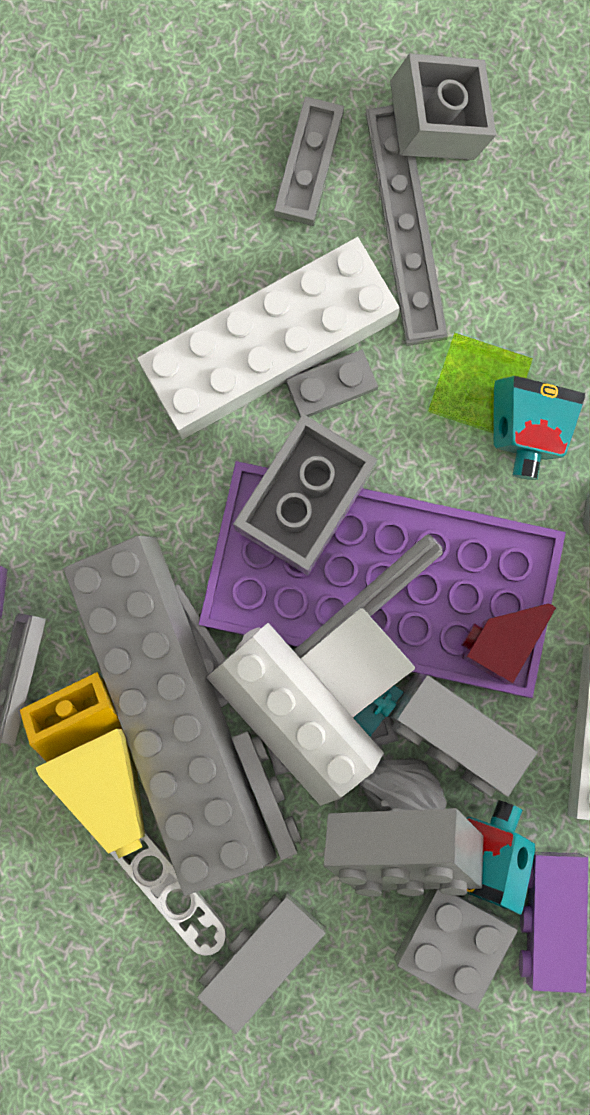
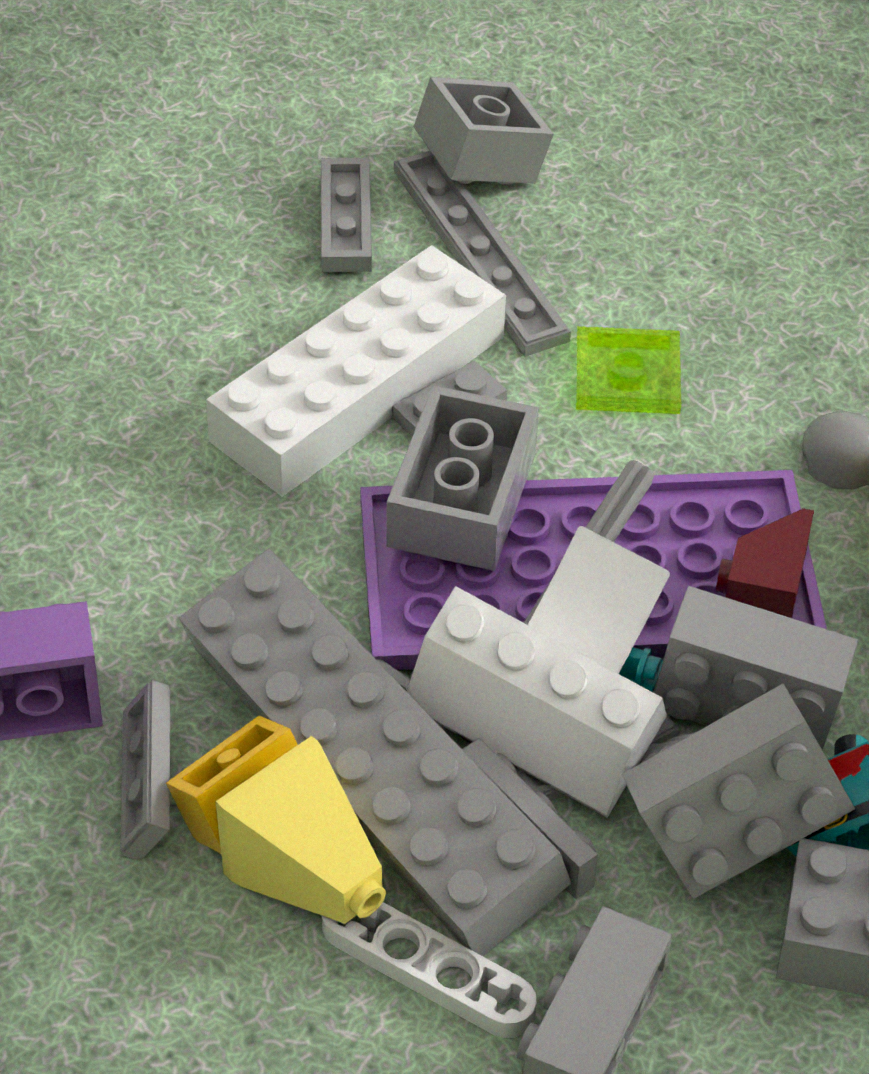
camera: 20 degrees left, 35 degrees down
(534, 421) = (705, 372): teal torso -> none

